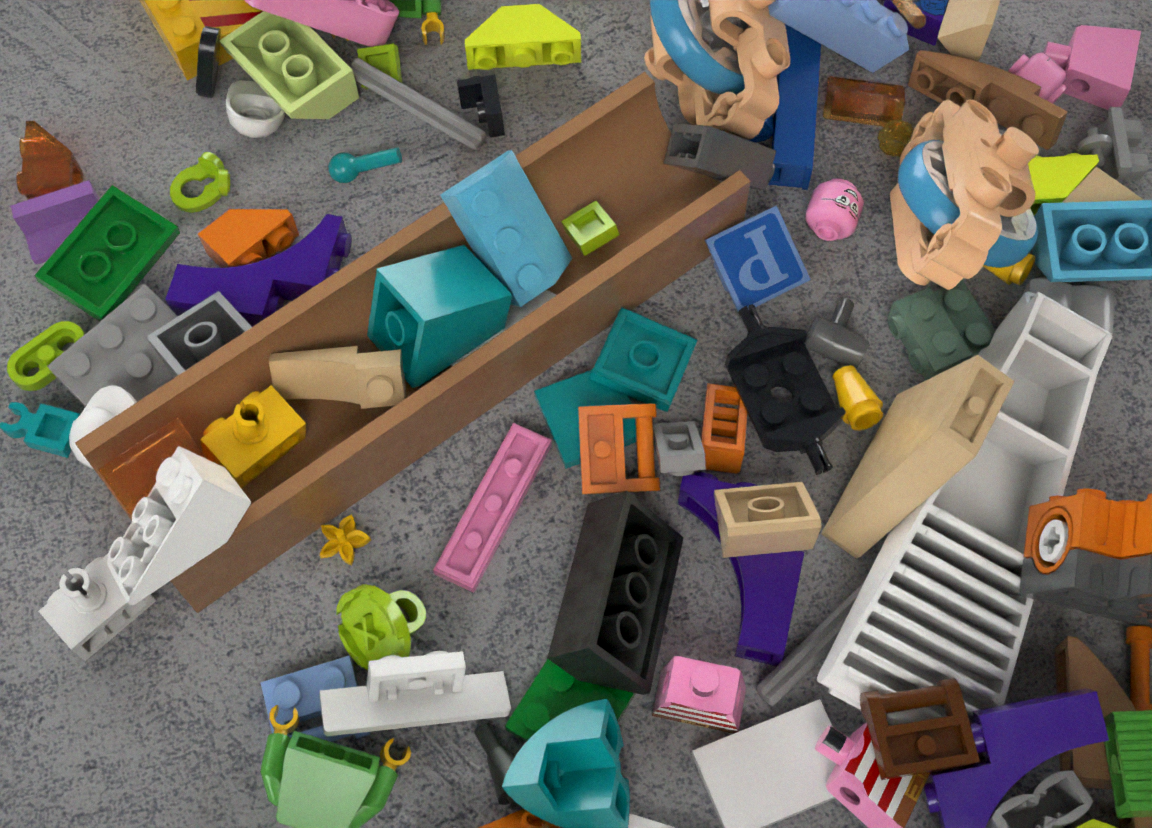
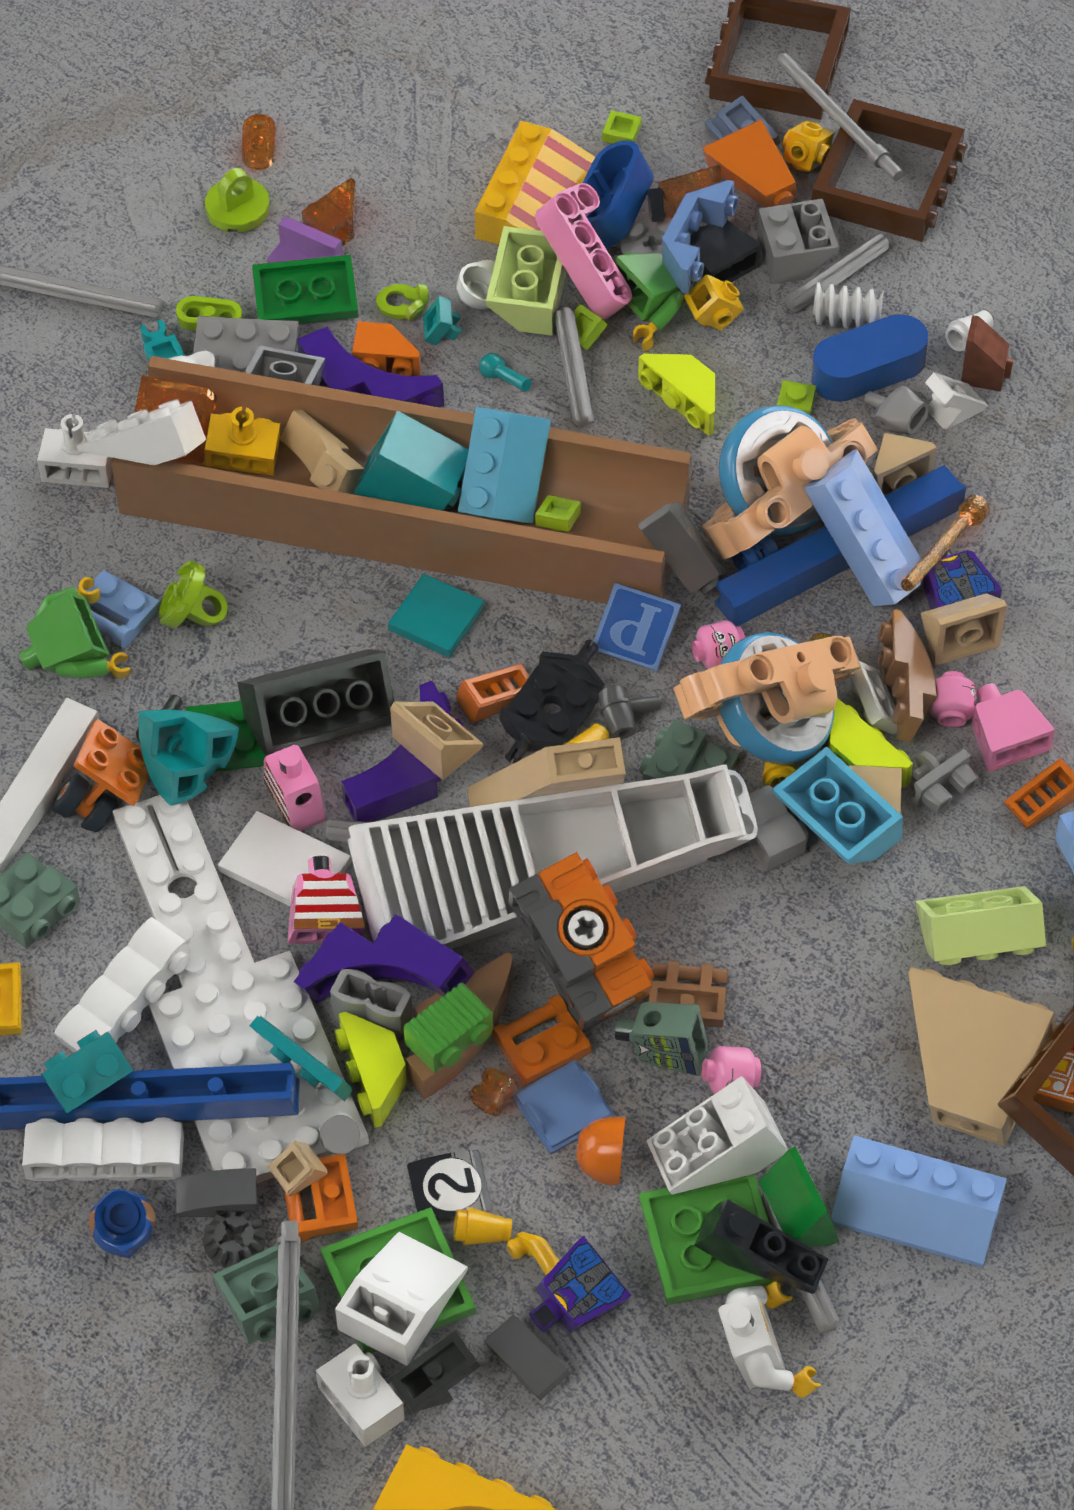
camera: 50 degrees right, 10 degrees down
(208, 61) = (487, 234): black tile -> none
(257, 171) = (440, 321): none -> teal tile
(343, 540) = (231, 548): yellow plant -> none
(414, 694) = (162, 642): white bracket -> none
(483, 94) = (614, 404): black bracket -> none
(492, 507) = (325, 609): bright pink tile -> none
(604, 448) = (413, 632): orange plate -> none
(643, 359) = (502, 615): teal tile -> none
(678, 448) = (447, 667): light grey plate -> none
(863, 101) = (838, 611): clear orange slope -> none
(922, 744) = (357, 904): reddish brown plate -> none

